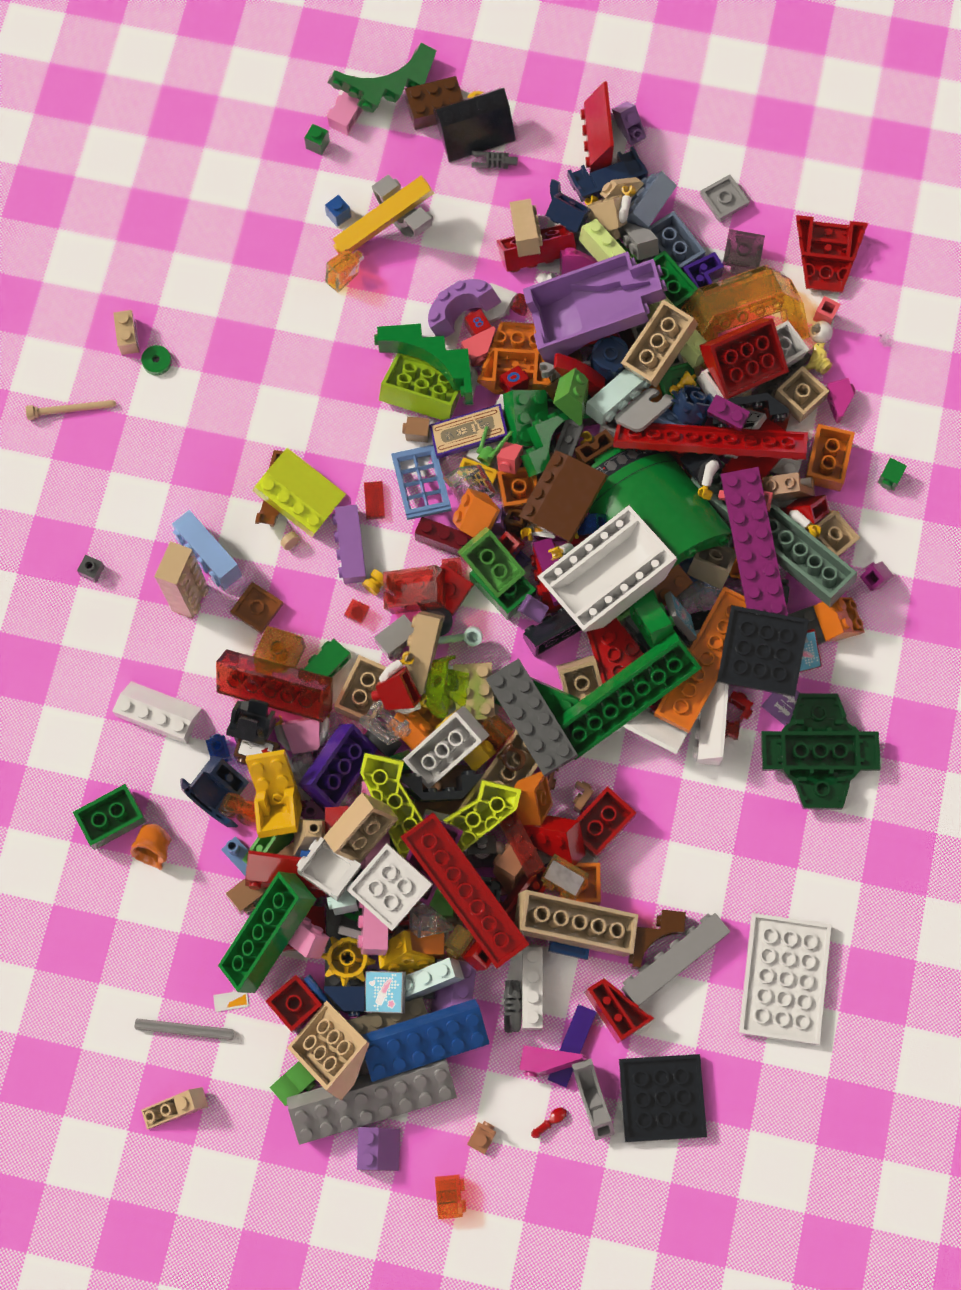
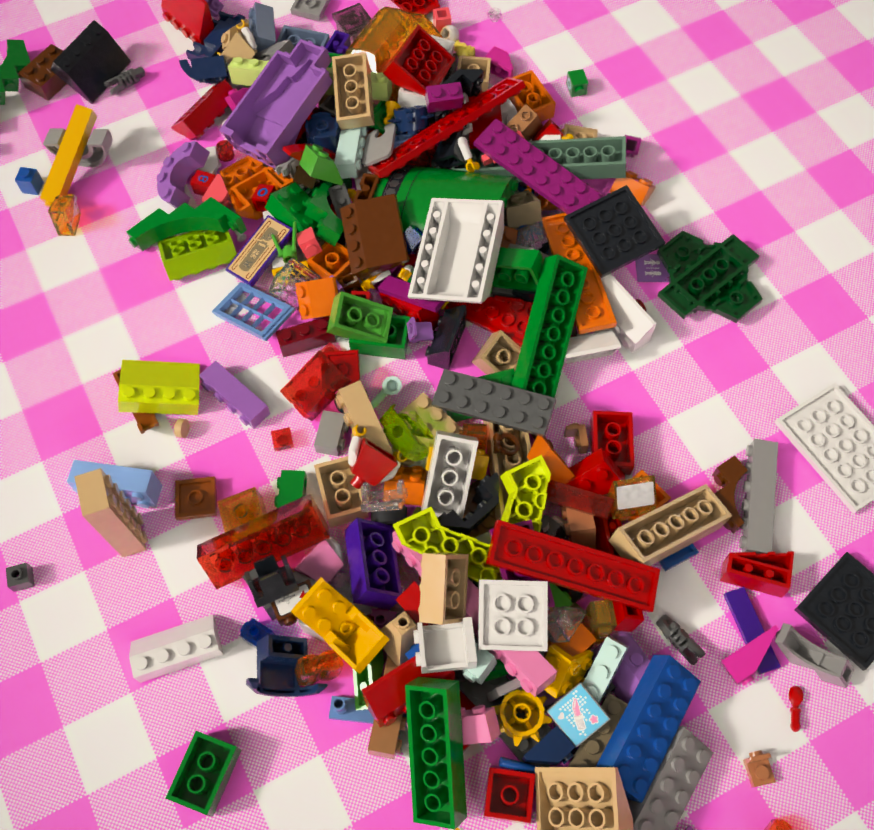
camera: 40 degrees left, 10 degrees down
(151, 845) = (264, 767): orange piece -> none
(374, 500) = (226, 352): clear red tile -> none
(374, 582) = (278, 407): yellow wheel -> none
(416, 429) = (217, 280): medium nougat brick -> none
(526, 227) = (186, 97): tan brick -> none
(532, 988) = (685, 612): white brick -> none
(741, 701) = (630, 286): red bracket -> none

